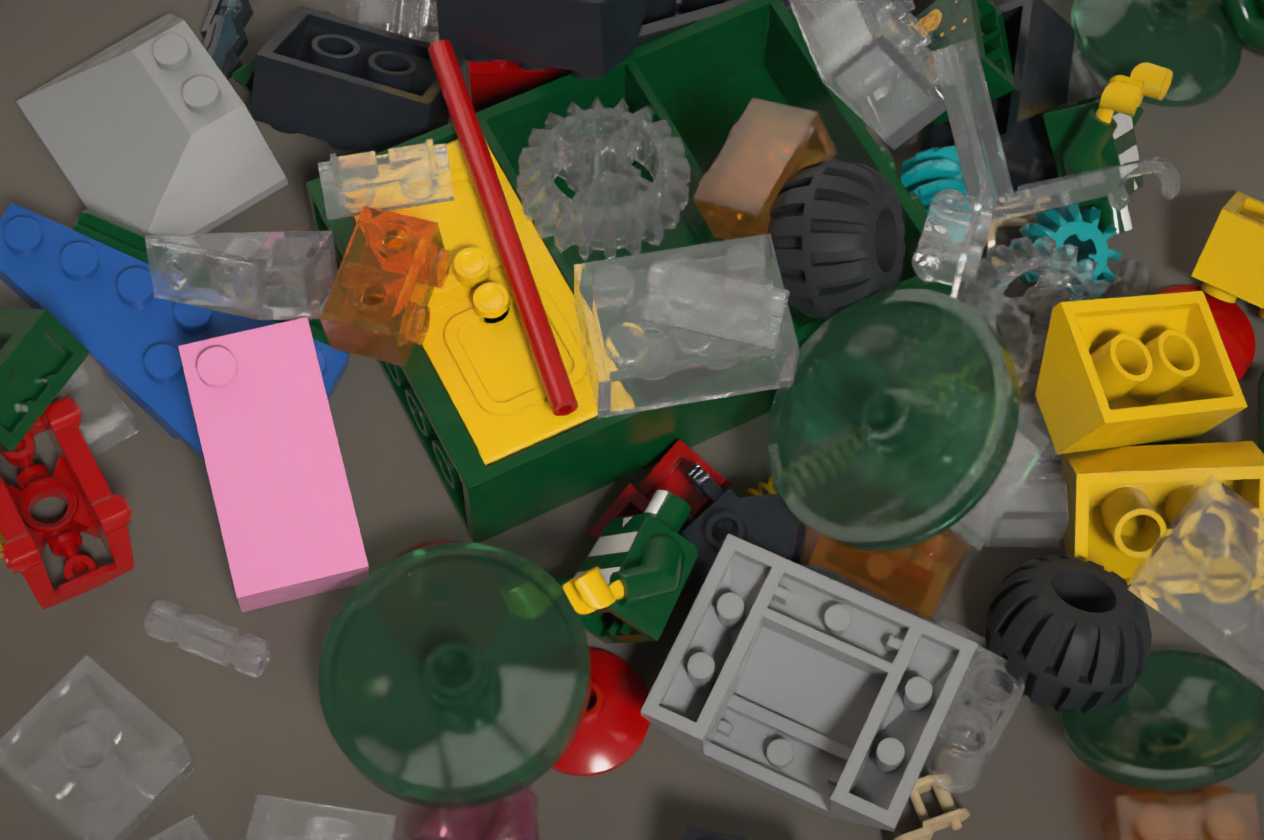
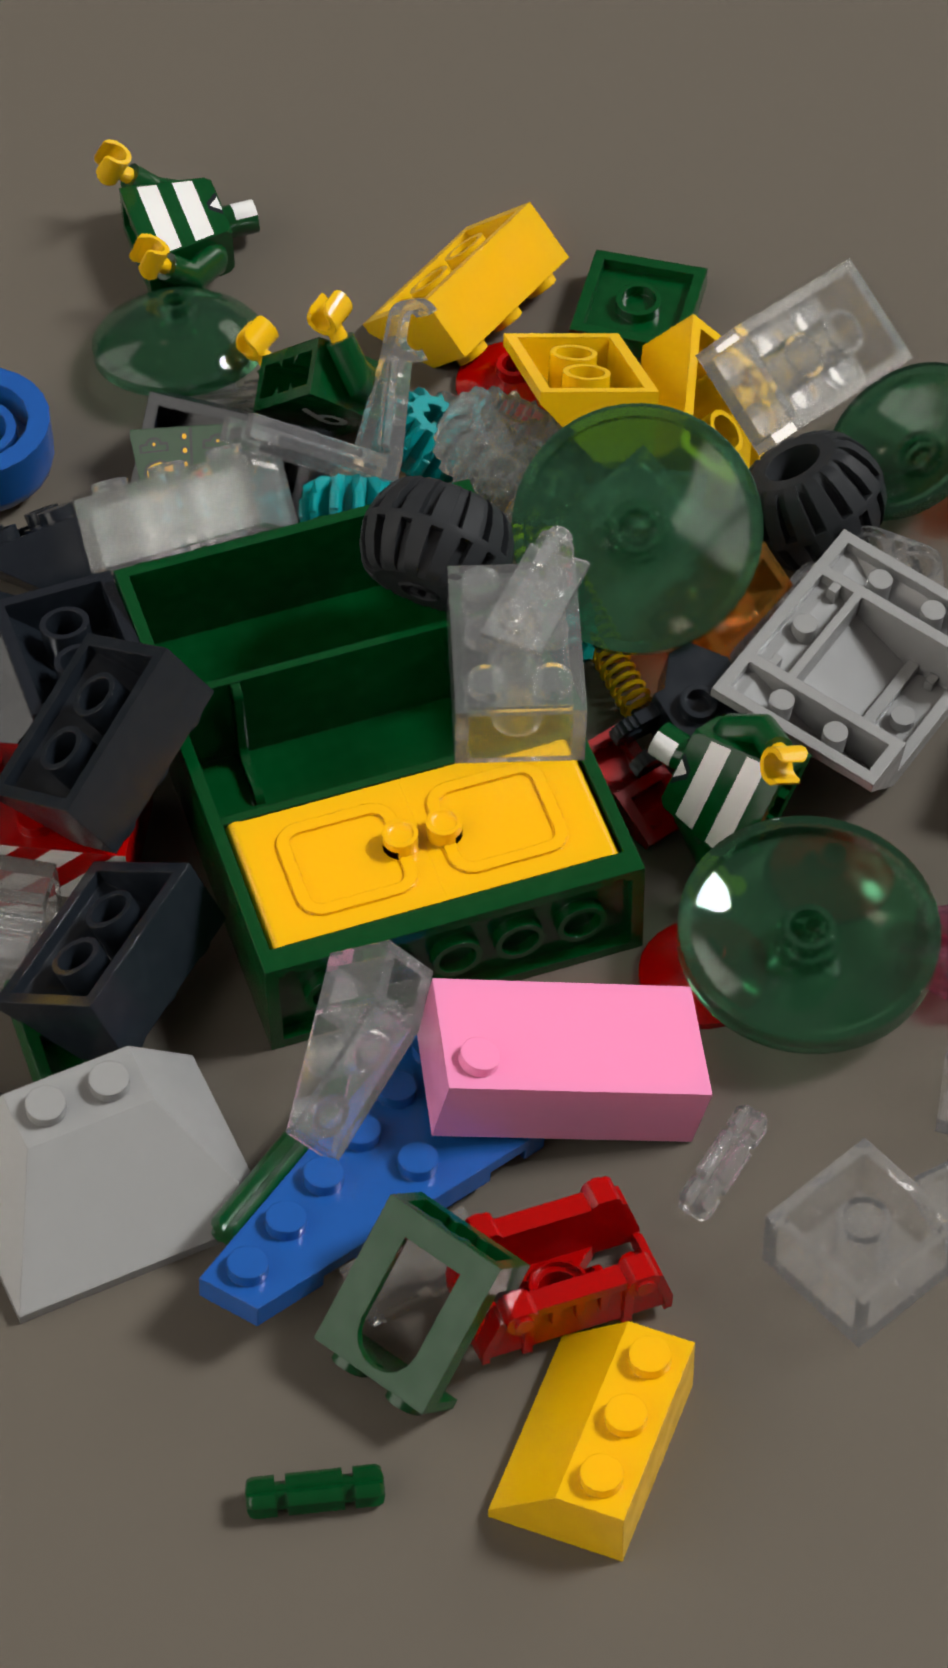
camera: 80 degrees left, 10 degrees down
(385, 286) = (423, 894): clear orange brick -> none
(386, 182) = (289, 888): clear hinge -> none
(503, 230) = (354, 806): red piece -> none
(611, 200) = (333, 730): clear gear -> none
(755, 162) = (361, 579): clear orange brick -> none
(953, 238) = (453, 458): clear hinge -> none

